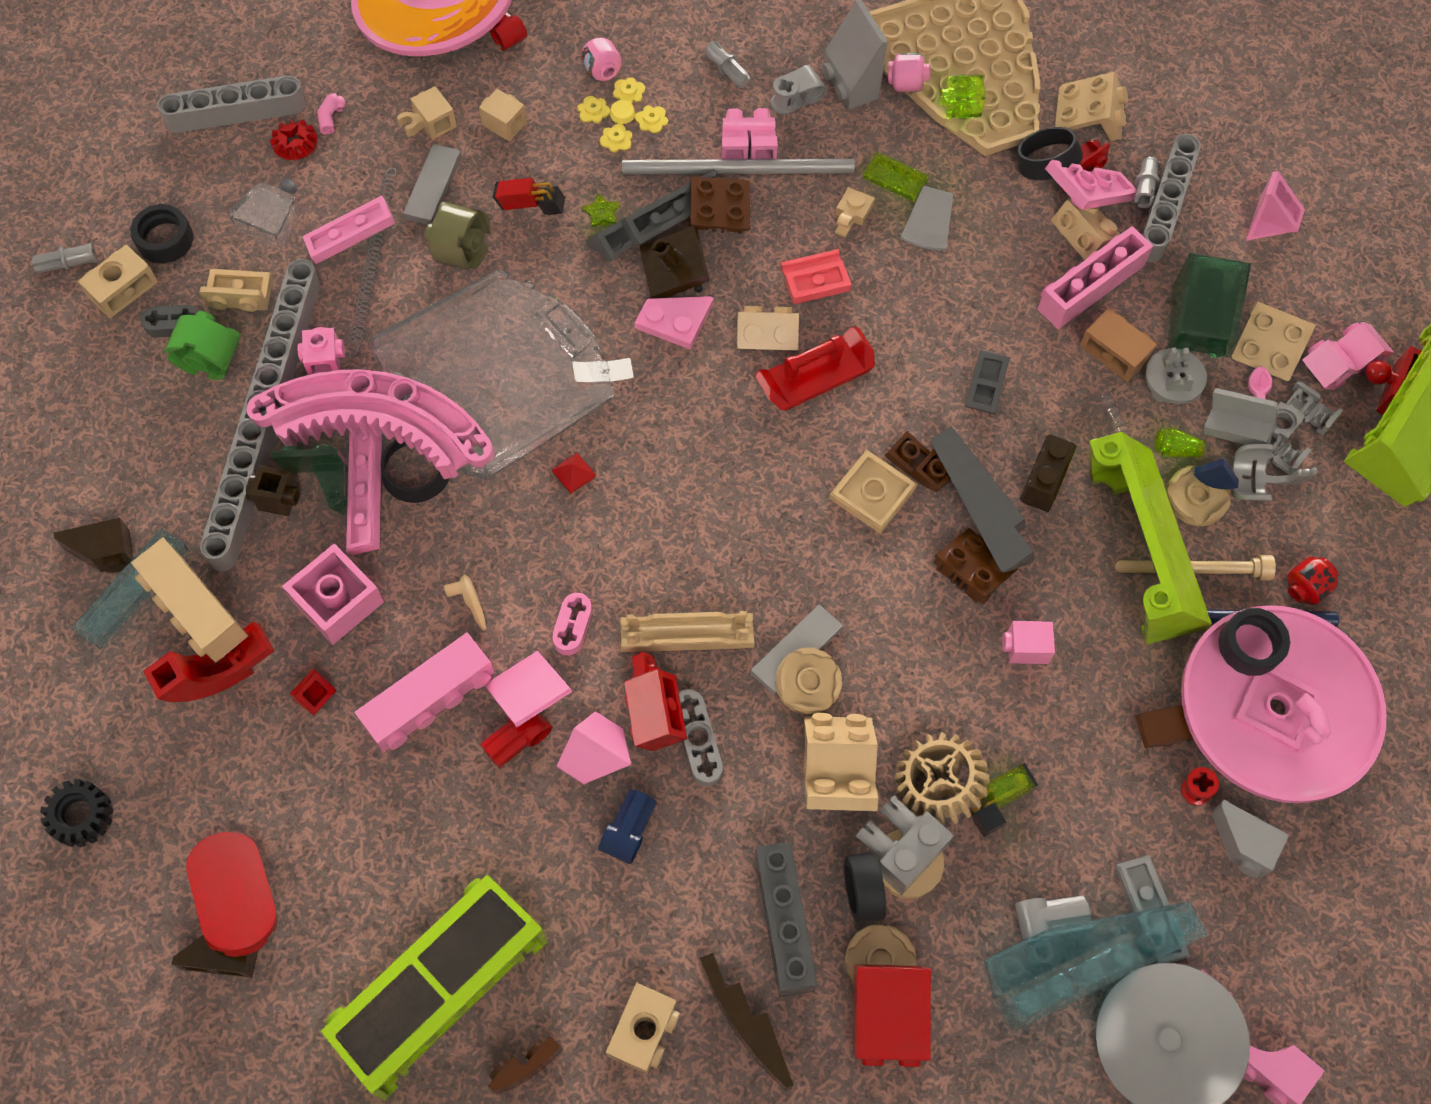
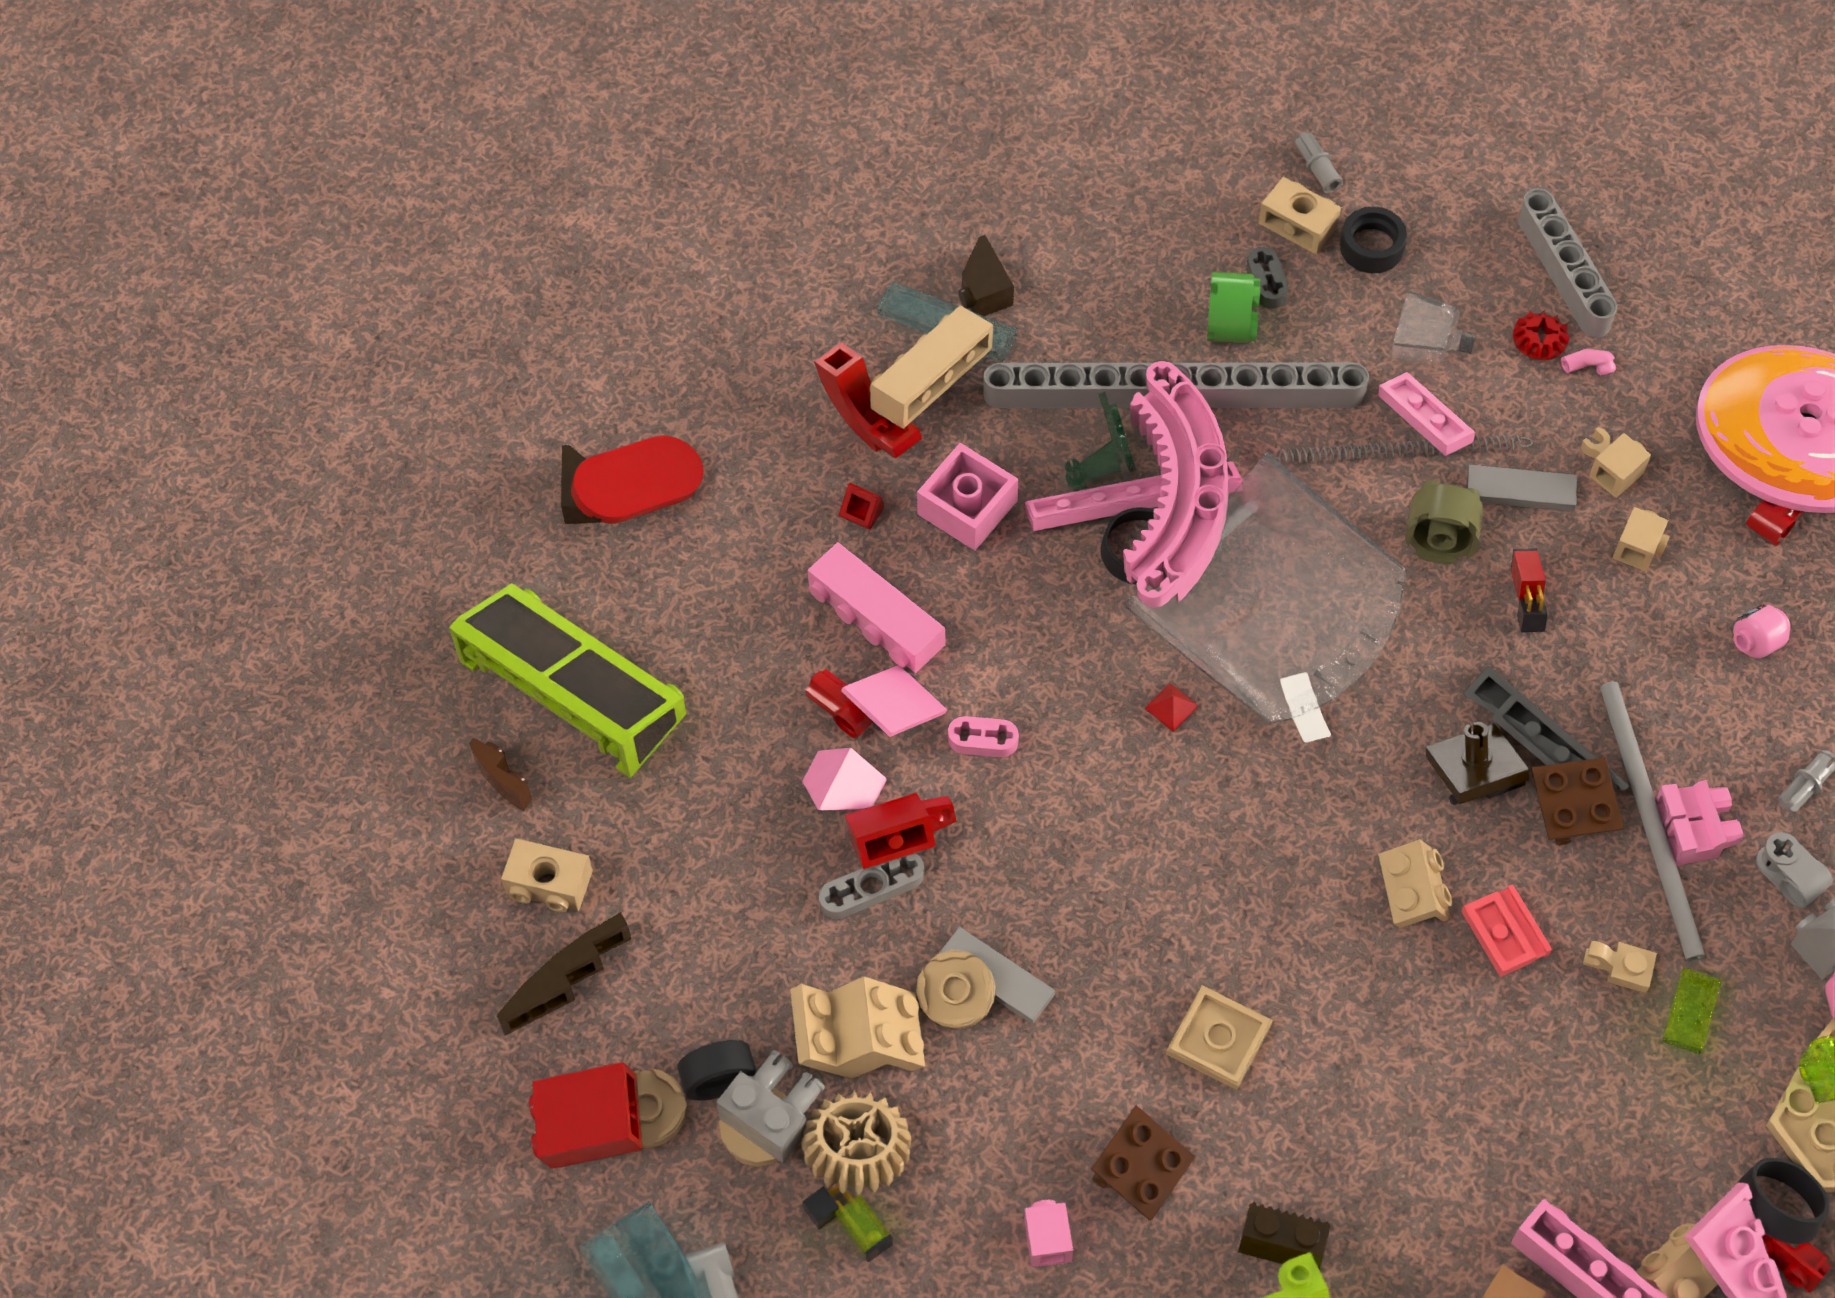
camera: 85 degrees right, 5 degrees down
(94, 823) = (703, 352): black tyre -> none
(237, 290) = (1320, 326): tan bracket -> none
(273, 490) = (1076, 415): dark brown brick -> none
(321, 350) = (1257, 422): bright pink brick -> none
(470, 597) = (1004, 625): tan bar -> none
(604, 218) = (1528, 680): clear neon green plate -> none
(622, 113) = (1693, 674): light yellow plant -> none
(624, 835) = (748, 826): dark blue piece -> none
(675, 318) = (1405, 781): bright pink wing -> none
(687, 631) = (993, 855): tan piece -> none
(785, 919) = (676, 996): dark grey brick -> none
(817, 369) = (1371, 950): red piece -> none
(918, 462) = (1270, 1087): reddish brown slope -> none
(929, 220) = (1638, 1061): light grey piece -> none
(985, 501) = (1225, 1165): dark grey wedge -> none
(987, 382) = (1405, 1159): dark grey slope -> none

